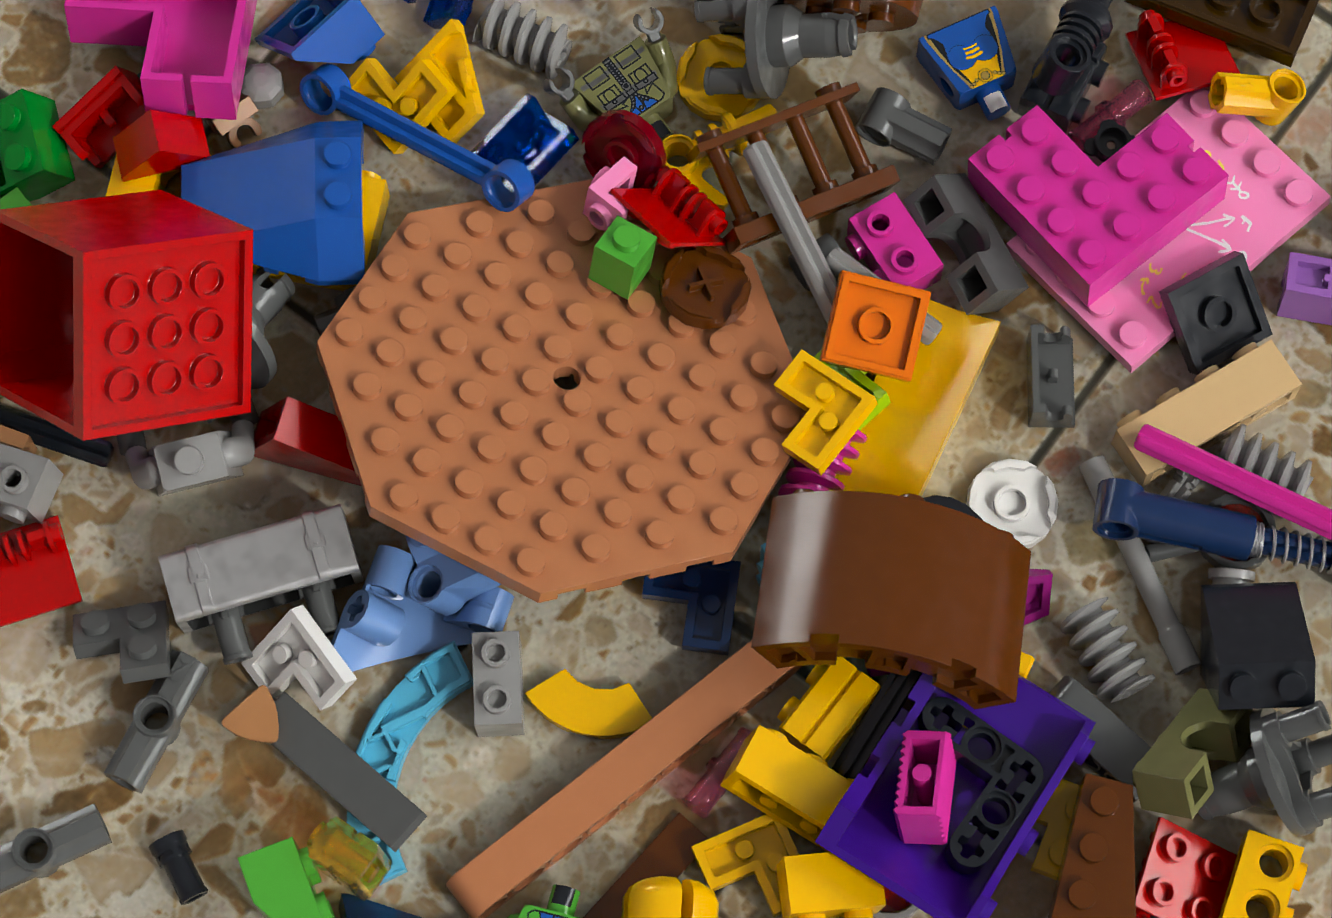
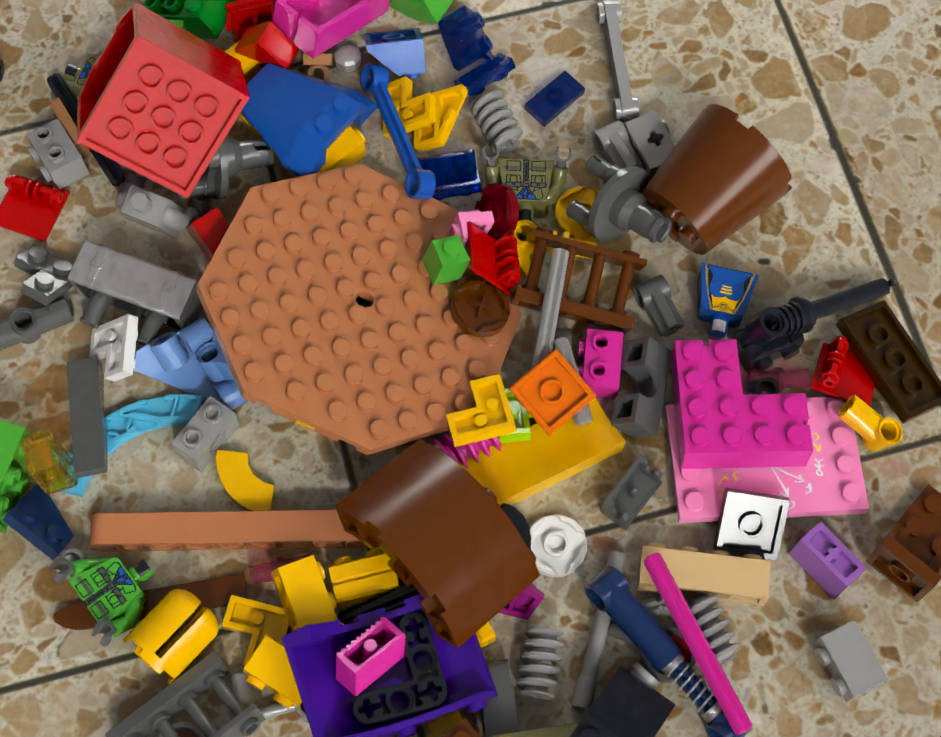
camera: 35 degrees right, 5 degrees down
(255, 718) = (69, 357): medium nougat tile -> none
(710, 599) = (351, 470): dark blue plate -> none

